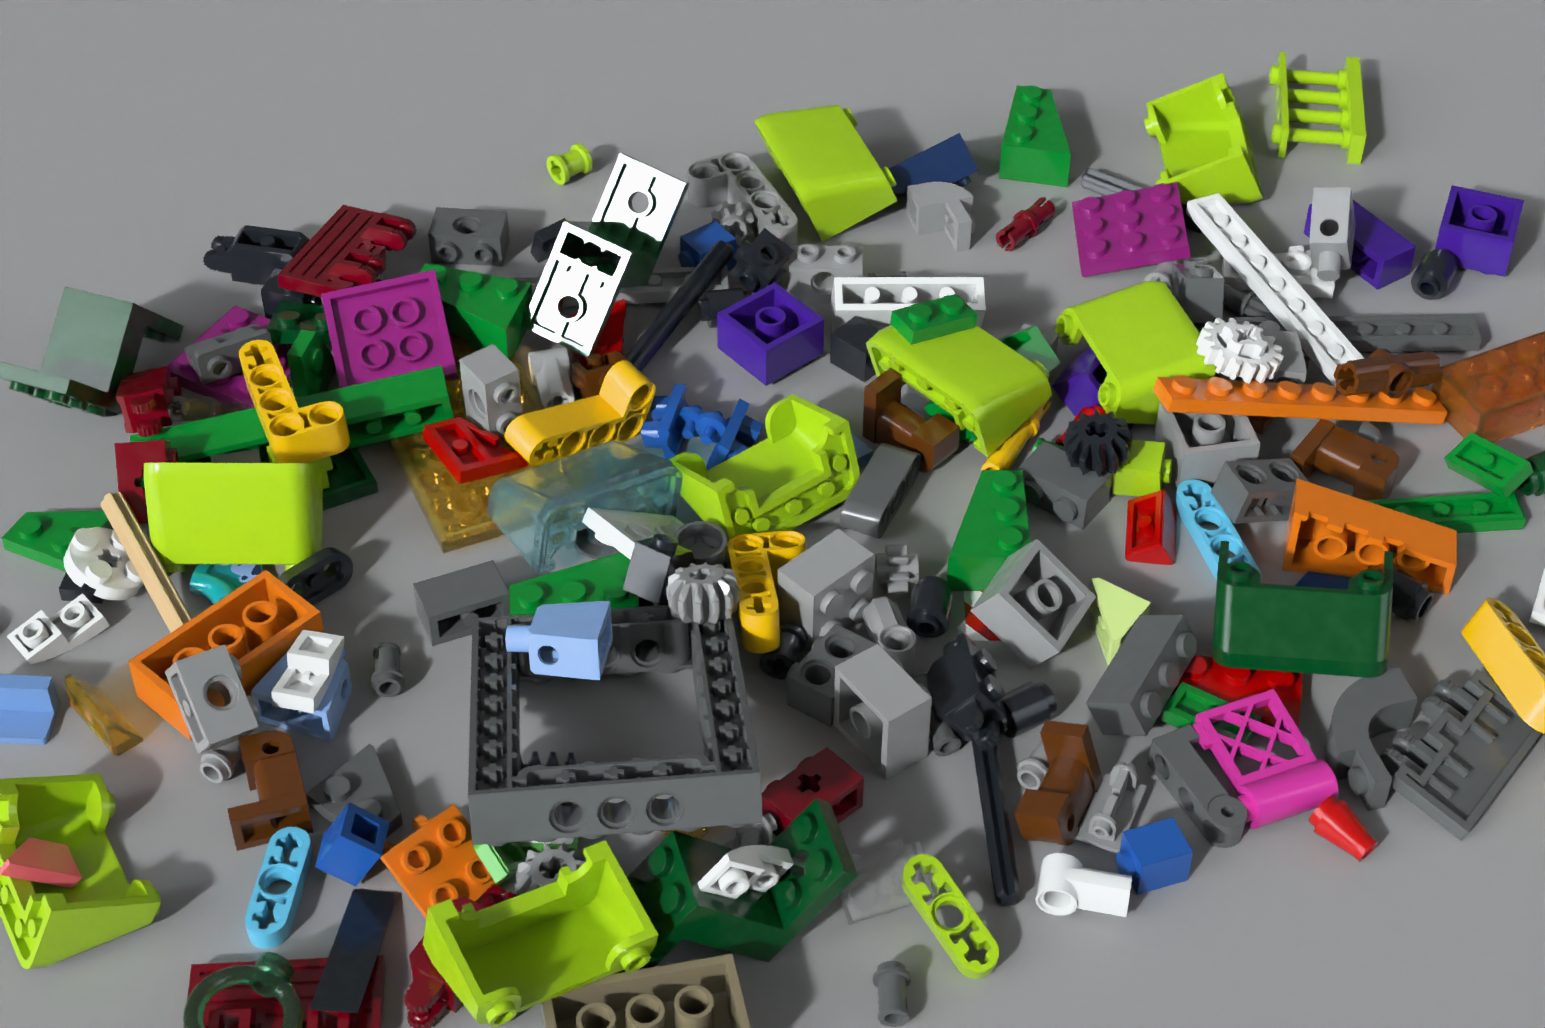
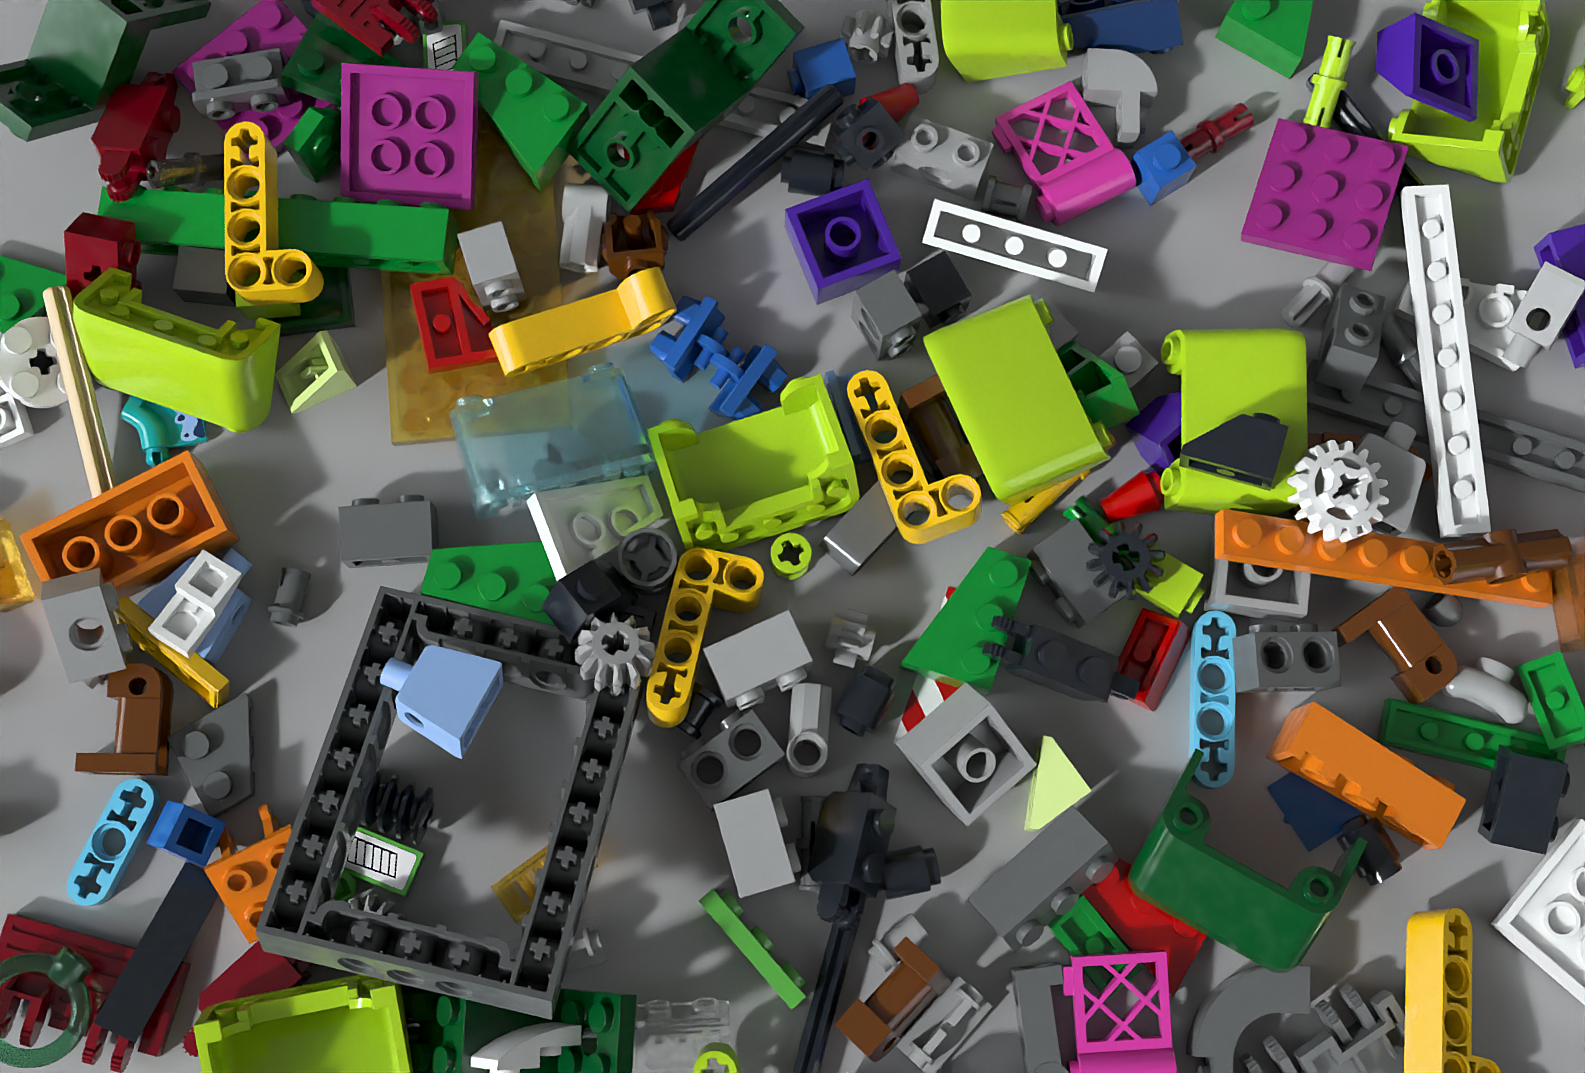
camera: 15 degrees right, 35 degrees up
(312, 581) = (246, 450): black plate -> none
(313, 734) = (193, 672): none -> yellow tile
(359, 514) = (315, 374): none -> yellowish green slope
(819, 523) = (795, 543): none -> lime bush
(819, 777) = (631, 937): dark red brick -> none
(827, 362) = (886, 316): none -> dark grey brick
(893, 442) = (901, 455): none -> yellow beam
(917, 798) = (755, 946): none -> bright green plate
(933, 319) = (1007, 338): green plate -> none
(950, 259) = (1075, 185): none -> dark pink piece
(998, 243) = (1162, 167): none -> blue brick
(1079, 525) = (1060, 662): none -> black hinge
(1098, 164) = (1329, 81): none -> lime pin
(1148, 341) = (1239, 450): none -> black slope
(1163, 143) = (1431, 64): none -> dark purple slope
(1430, 475) = (1490, 689): none -> light grey piece
(1501, 524) = (1524, 799): none -> black brick

